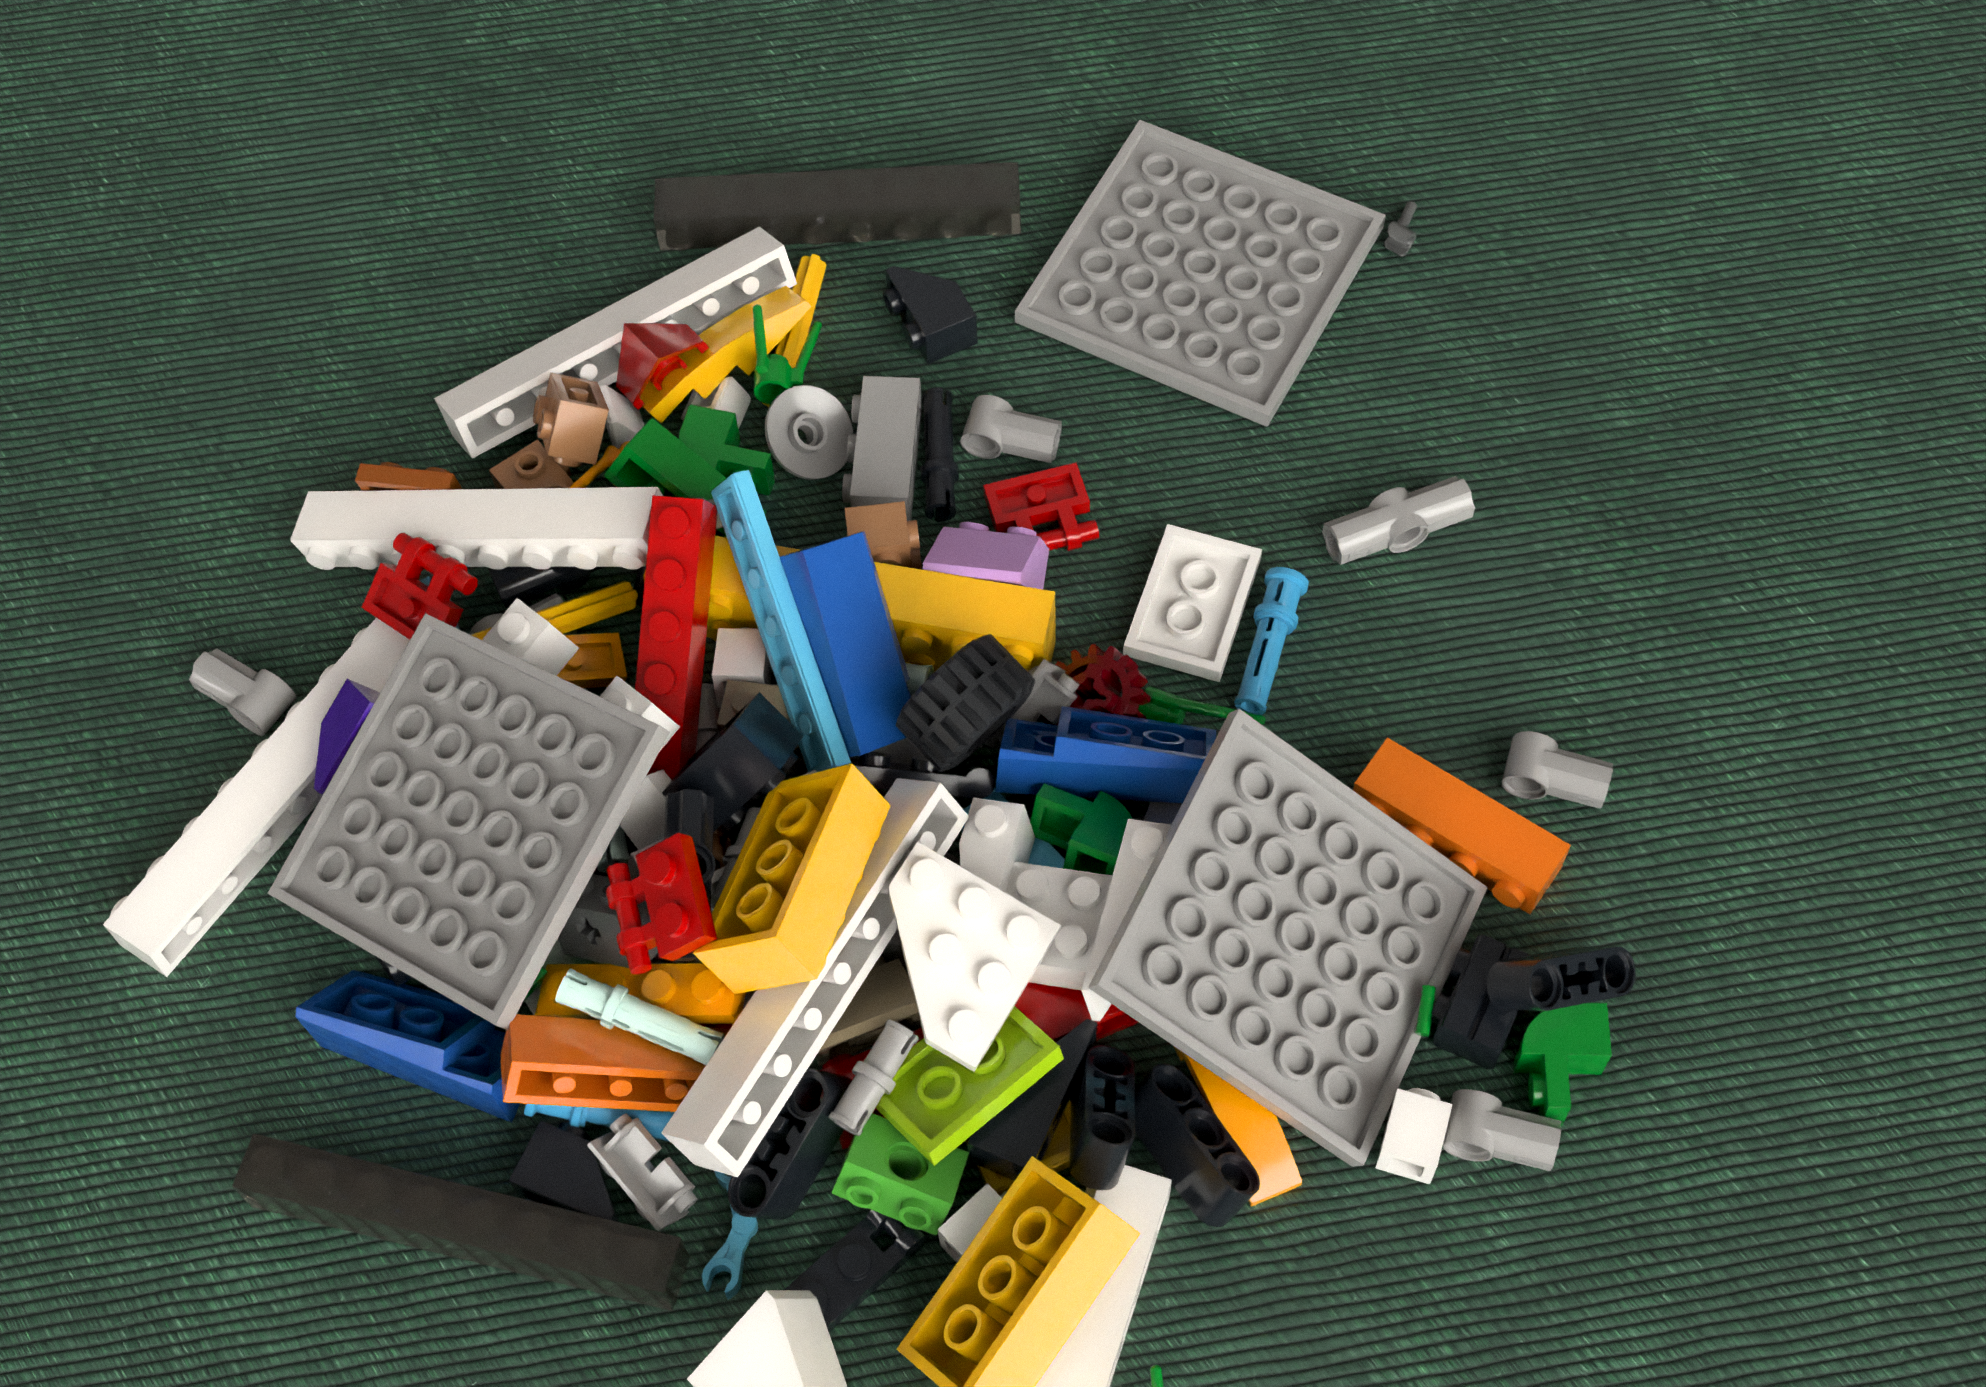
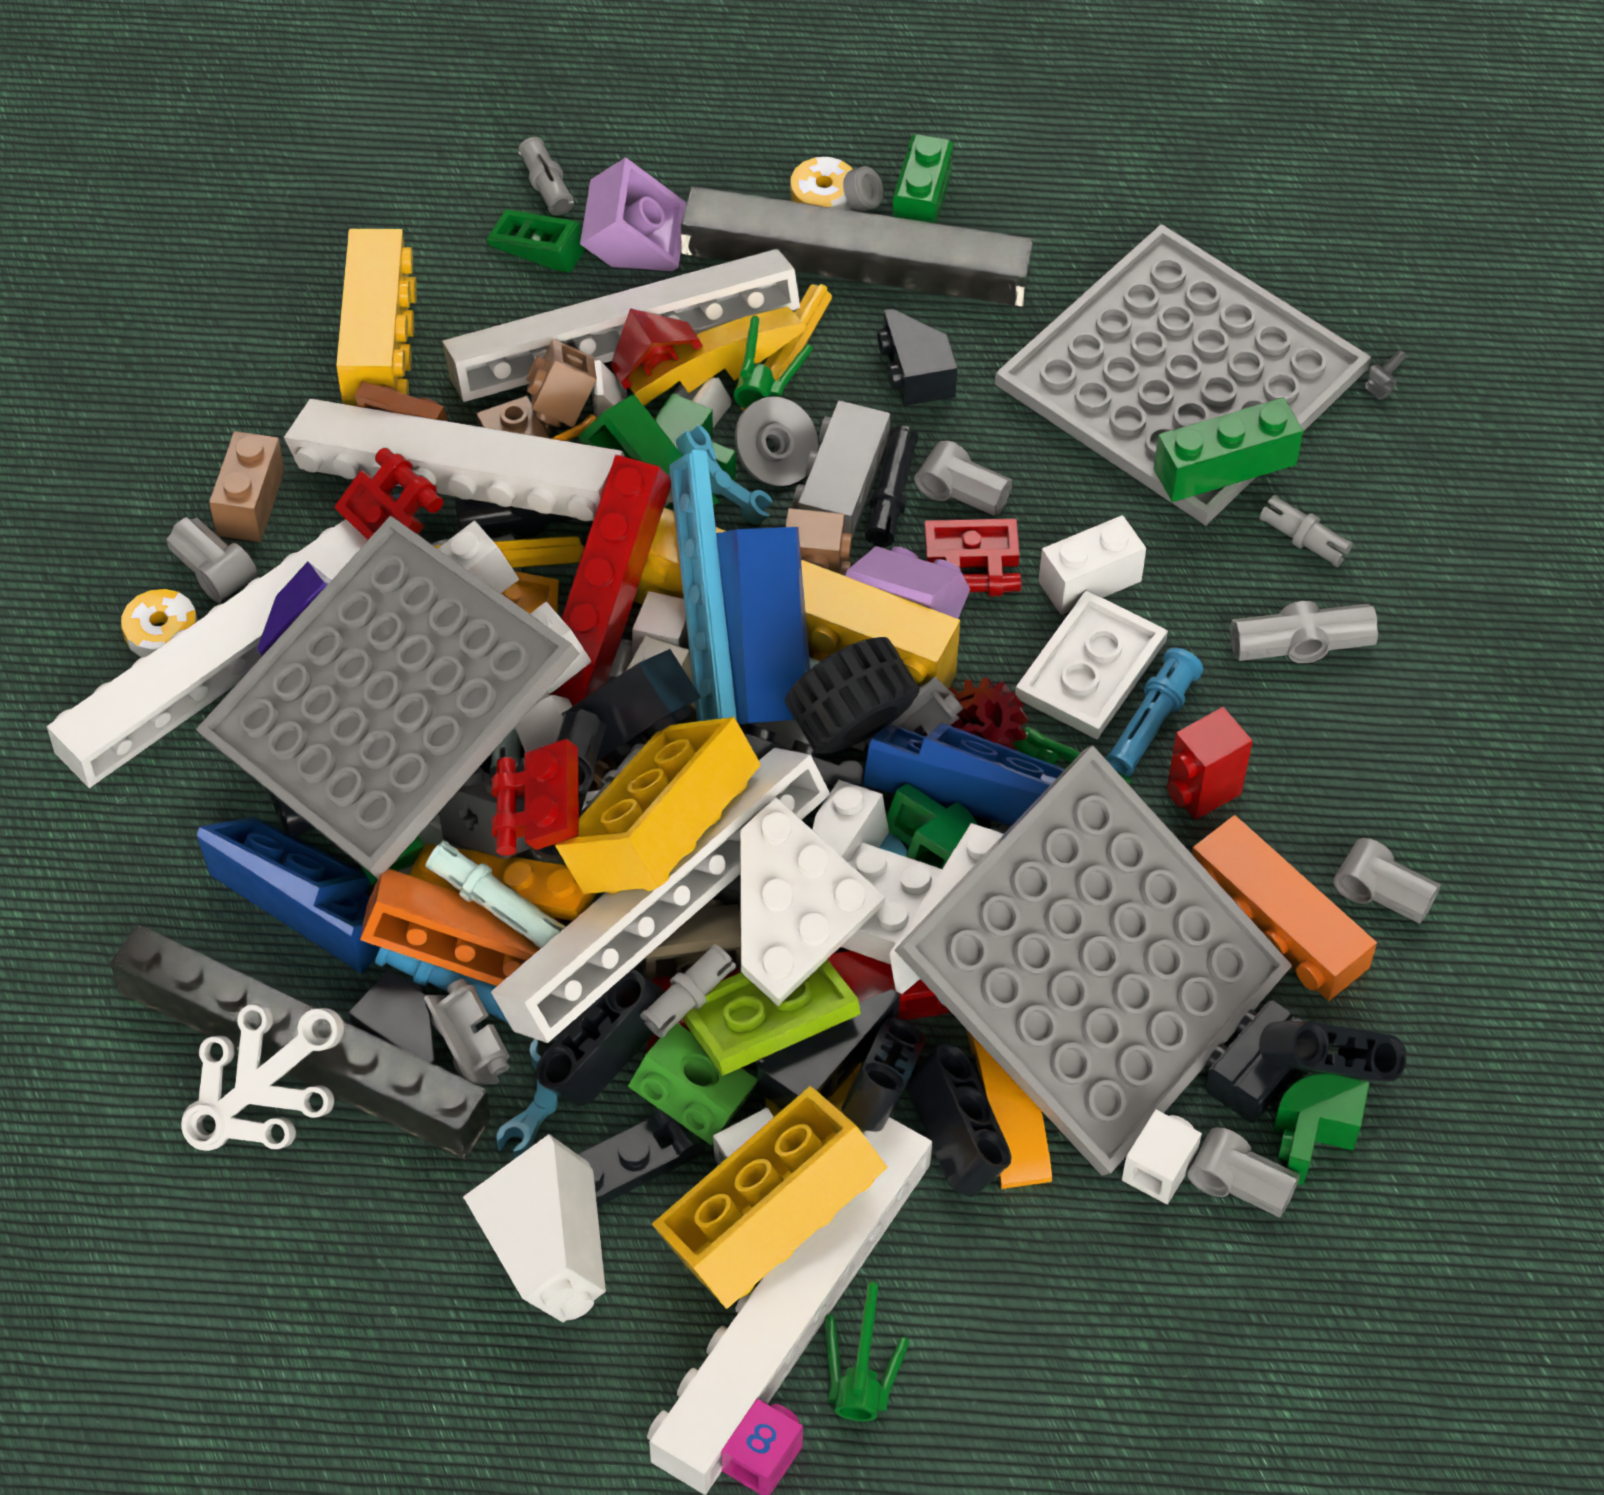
camera: 10 degrees right, 5 degrees down
(188, 760) = (154, 608): none -> piece
(263, 601) = (247, 486): none -> medium nougat brick
(357, 384) = (376, 312): none -> yellow brick
(424, 1289) = (255, 1082): none -> white plant
(501, 197) = (546, 176): none -> light grey pin
(534, 277) = (558, 254): none -> green slope
(602, 225) = (632, 219): none -> lavender slope
(731, 458) = (750, 503): none -> medium azure piece
(787, 135) = (816, 173): none -> yellow piece
(830, 144) = (863, 188): none -> light grey tile
(889, 122) = (923, 179): none -> green brick
(1166, 493) = (1094, 561): none -> white brick
(1274, 344) = (1227, 449): none -> green brick
(1345, 686) = (1208, 763): none -> red brick
(1370, 411) = (1306, 530): none -> light grey pin
(1425, 1010) = (1203, 1055): green piece -> none

